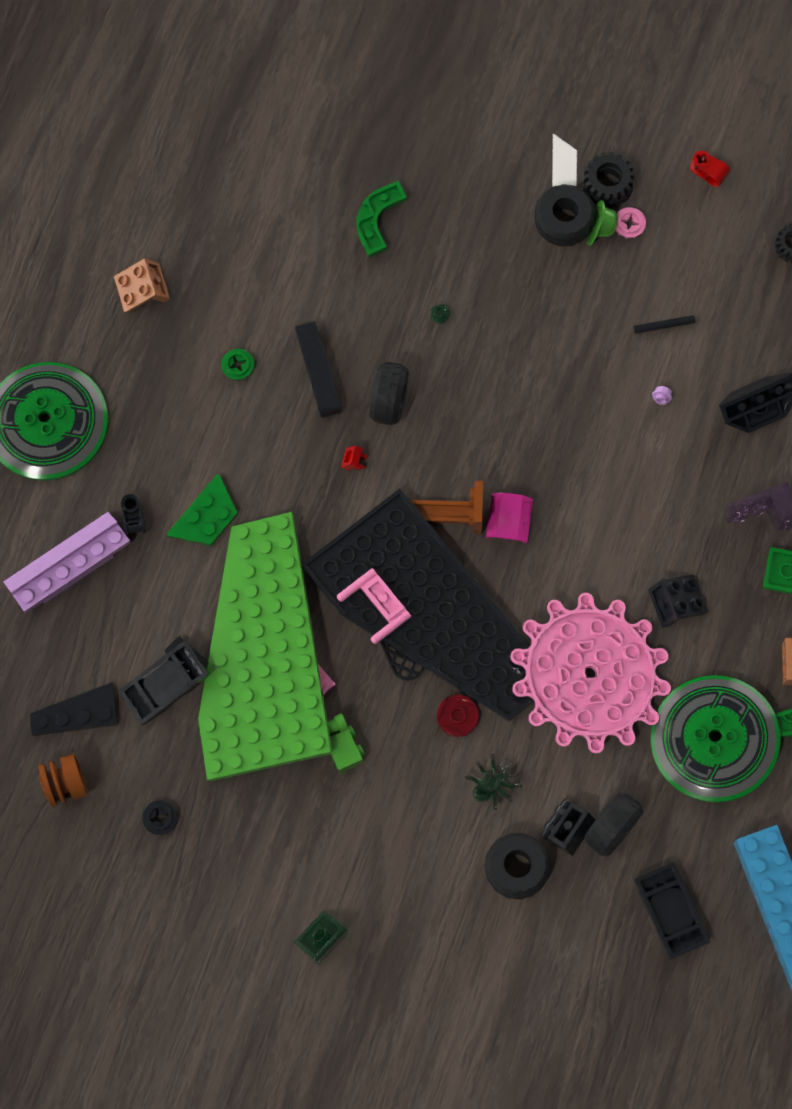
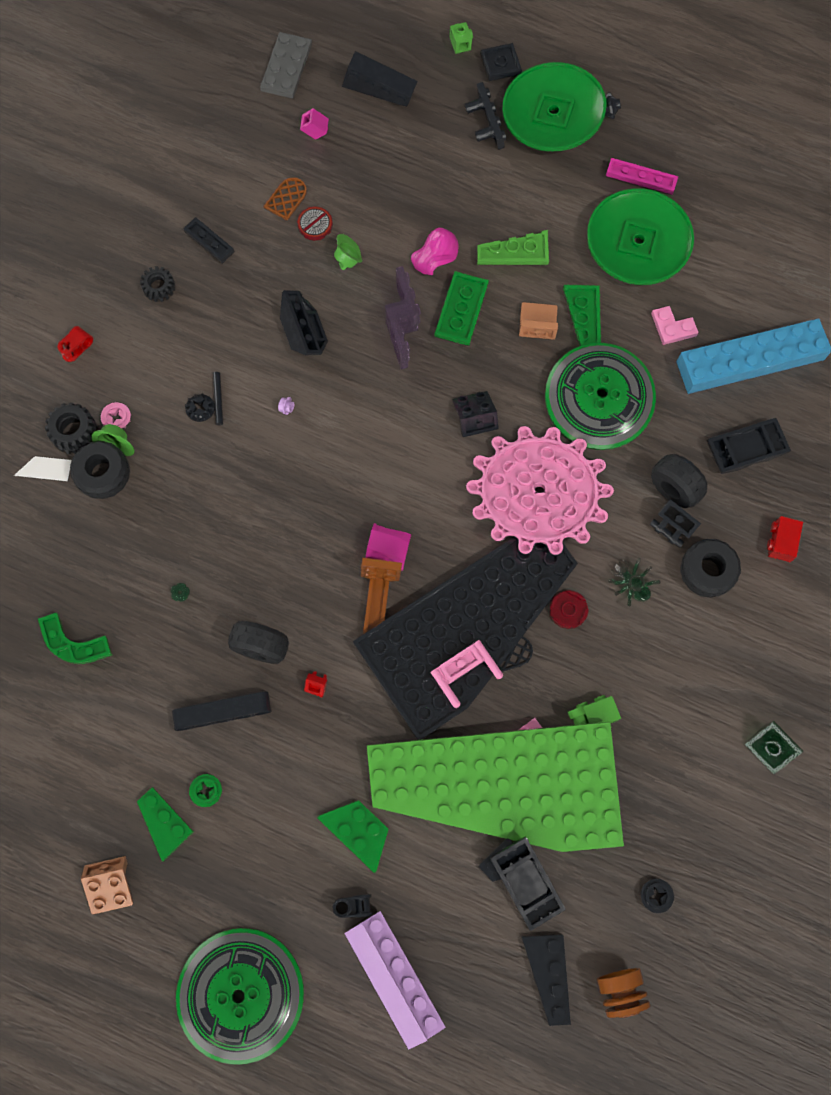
camera: 90 degrees left, 0 degrees up
(203, 330) = (164, 823): none -> green wing
(561, 952) = (784, 539): none -> red brick
(653, 315) = (200, 415): none -> black gear

